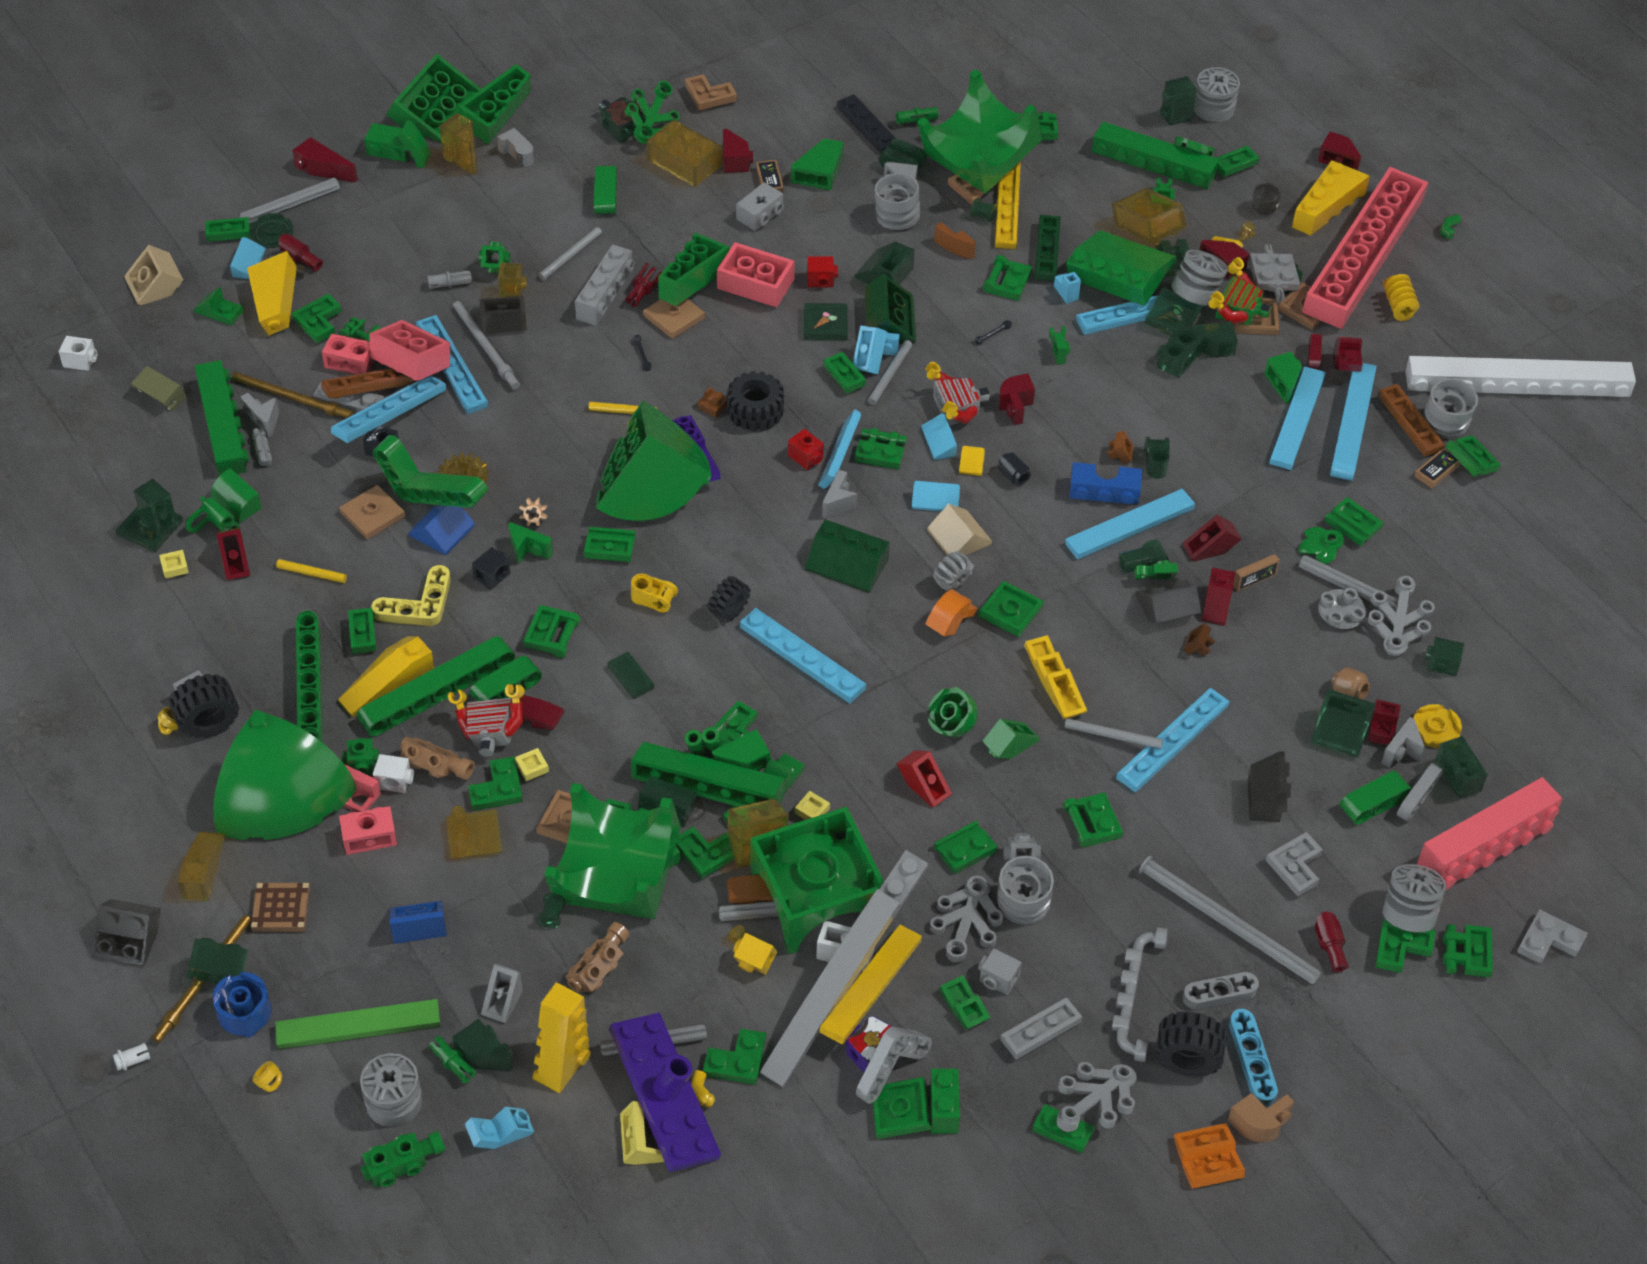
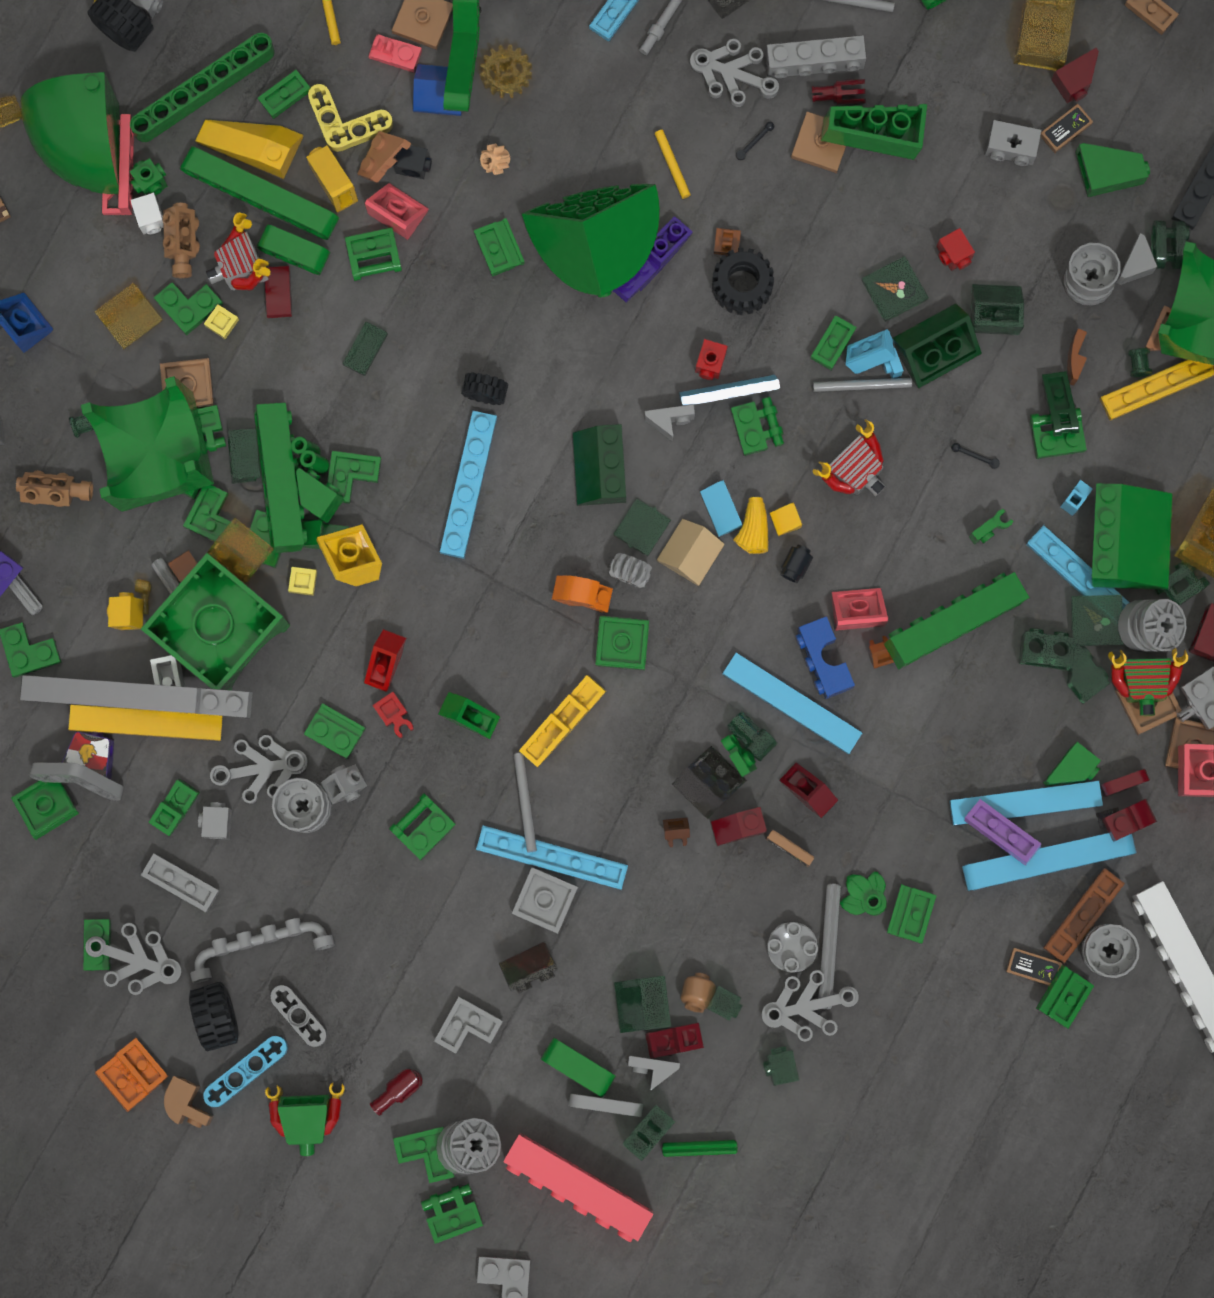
camera: 65 degrees right, 30 degrees up
(378, 836) = (90, 241): coral brick -> none
(386, 543) = (395, 53): none -> coral plate
(464, 624) = (332, 178): none -> yellow slope
(471, 581) = (381, 156): none -> nougat wing
(525, 600) = (396, 210): none -> coral slope
(527, 540) = (456, 170): green slope -> none
(554, 352) = (730, 71): none -> light grey plant
(652, 592) = (462, 321): yellow piece -> none
(755, 274) = (909, 191): coral brick -> none
(816, 751) = (351, 556): none -> yellow slope
(916, 557) = (642, 527): none -> clear green piece
(939, 438) = (798, 474): medium azure slope -> none
(944, 1101) = (66, 837): green brick -> none
(953, 712) = (461, 652): green cylinder -> none
(972, 485) = (754, 531): none -> yellow piece
(974, 794) = (391, 712): none -> red plate
(987, 261) = (1060, 403): none -> dark green plate
(1014, 395) = (896, 516): dark red brick -> none
(1047, 247) = (1123, 452): dark green plate -> none
(1078, 445) = (859, 609): none -> coral slope
(1125, 387) = (955, 621): none -> green brick
(1157, 456) = (896, 689): clear green piece -> none
(1210, 757) = (544, 900): none -> light grey plate
(1230, 920) = (375, 993): light grey axle -> none
(1317, 430) = (1002, 832): none -> medium lavender plate
(1324, 1021) = (304, 1118): none -> green torso
(1372, 664) = (725, 1004): none -> clear green brick
(1437, 724) = (698, 1090): yellow tile -> none
(1491, 741) = (699, 1148): none -> green axle

